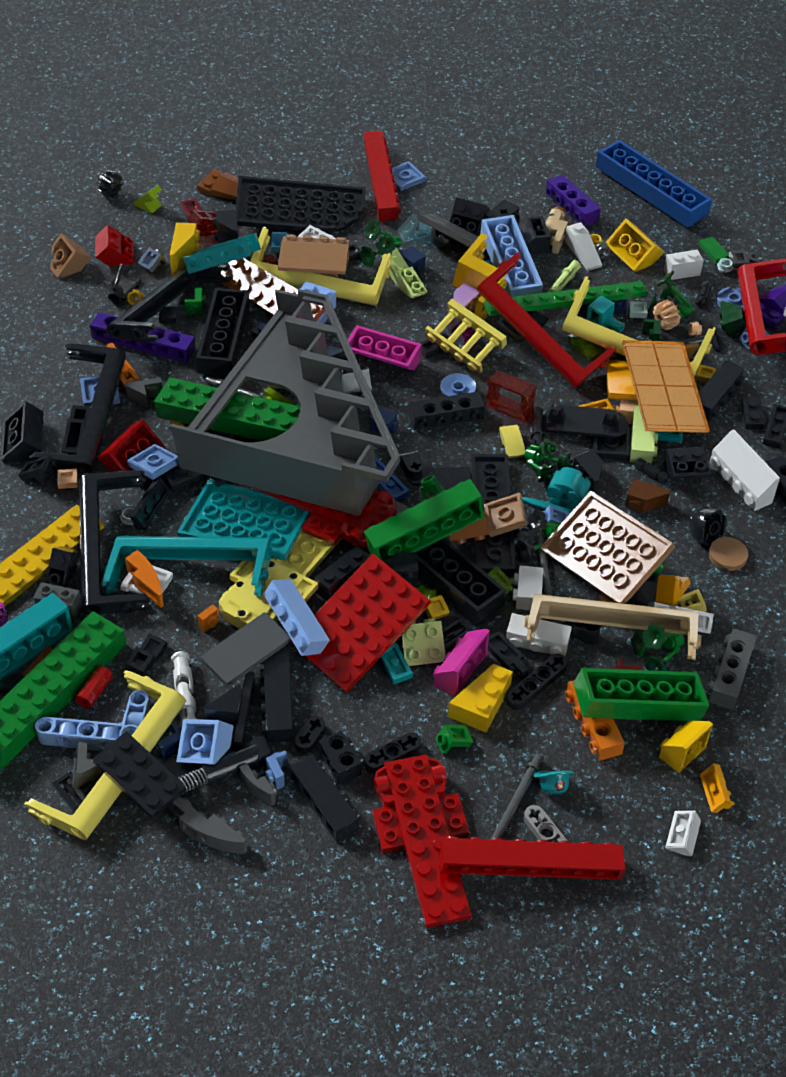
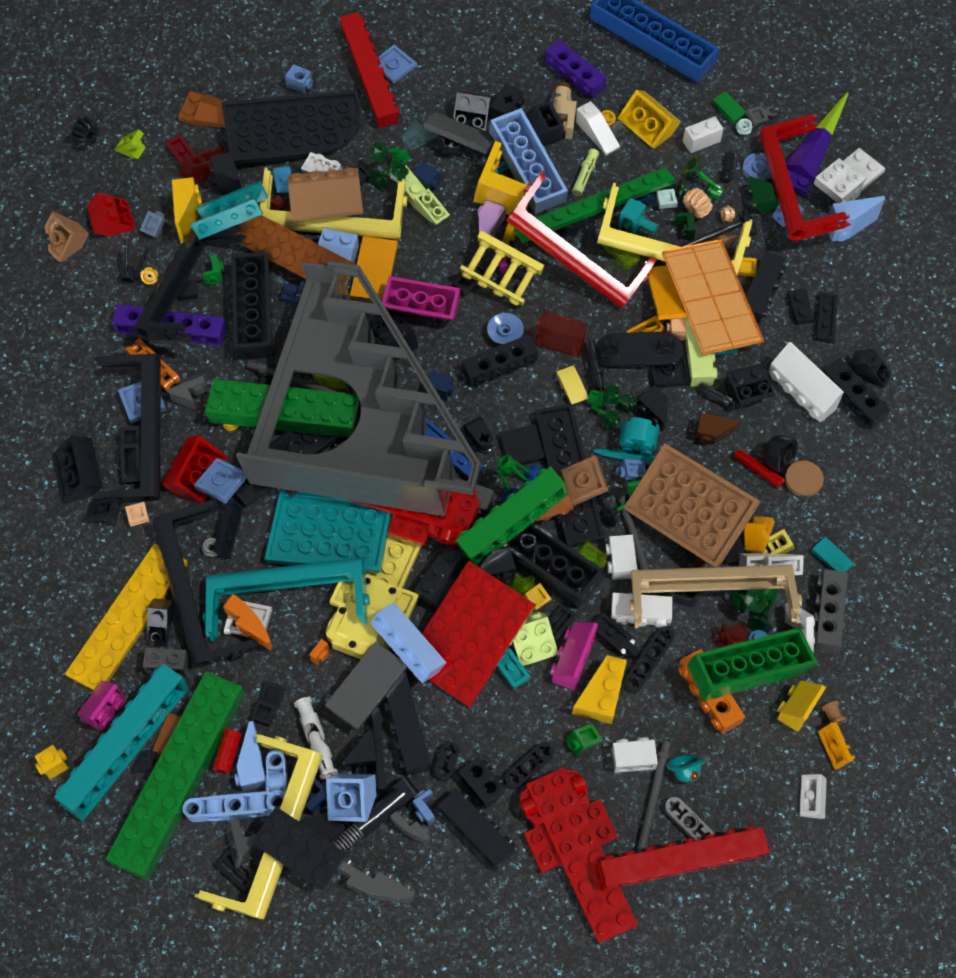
camera: 10 degrees left, 15 degrees up
(113, 698) = (250, 762): none -> light blue slope
(314, 172) = (299, 79): none -> medium blue brick
(349, 315) = (377, 263): none -> light orange tile
(502, 761) = (634, 755): none -> white brick
(684, 537) = (759, 468): none -> red axle
(704, 668) = (806, 624): none -> white plate
(718, 756) = (833, 712): none -> medium nougat bush
(743, 621) = (832, 556): none -> teal tile

